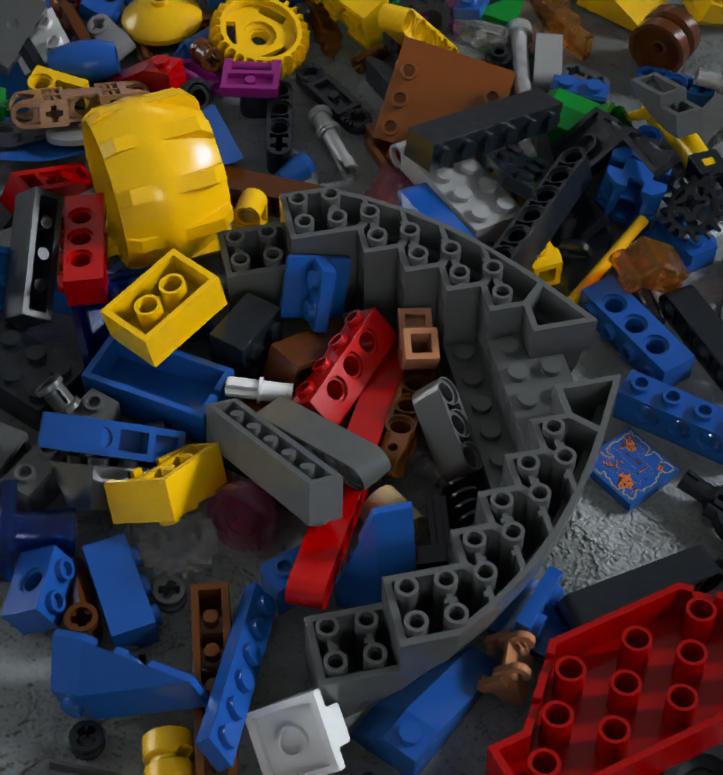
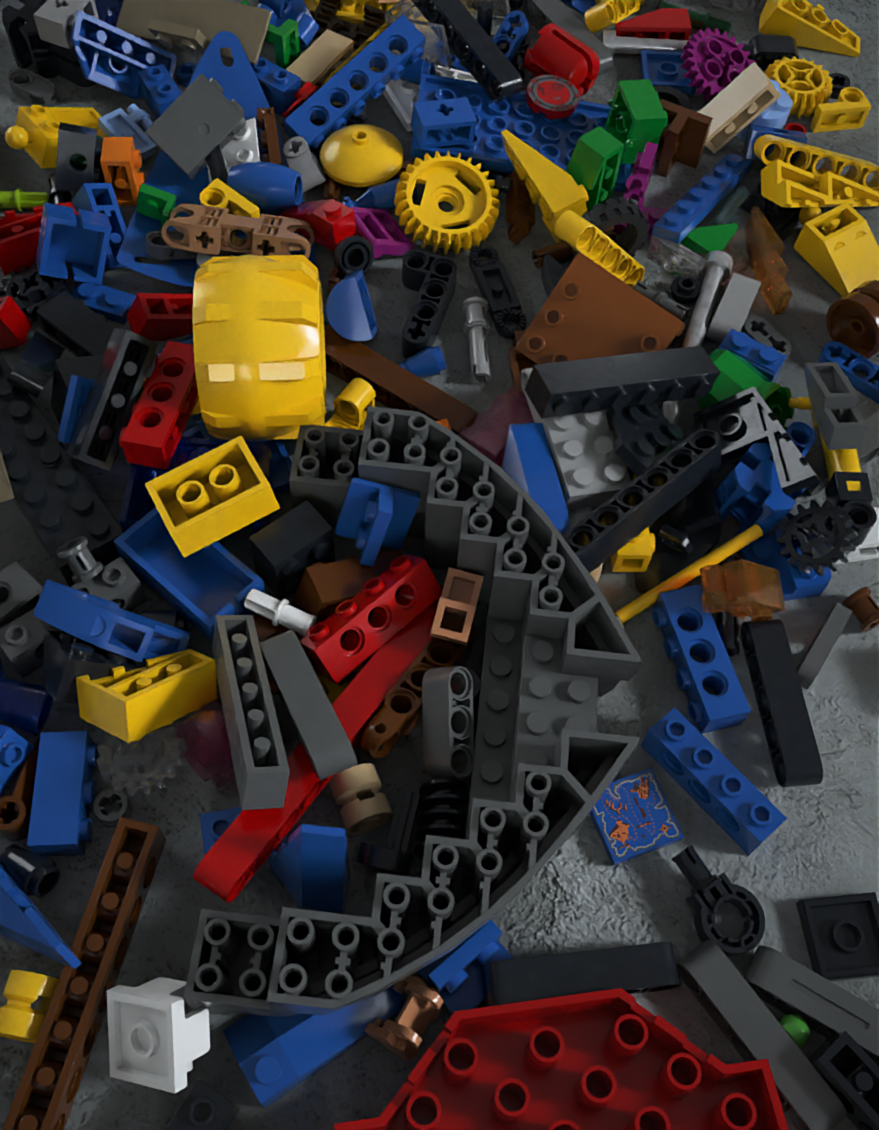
camera: 15 degrees right, 10 degrees up
(208, 56) = (380, 208): reddish brown bush -> none
(236, 678) = (114, 948): blue plate -> none
(250, 79) = (416, 250): magenta plate -> none

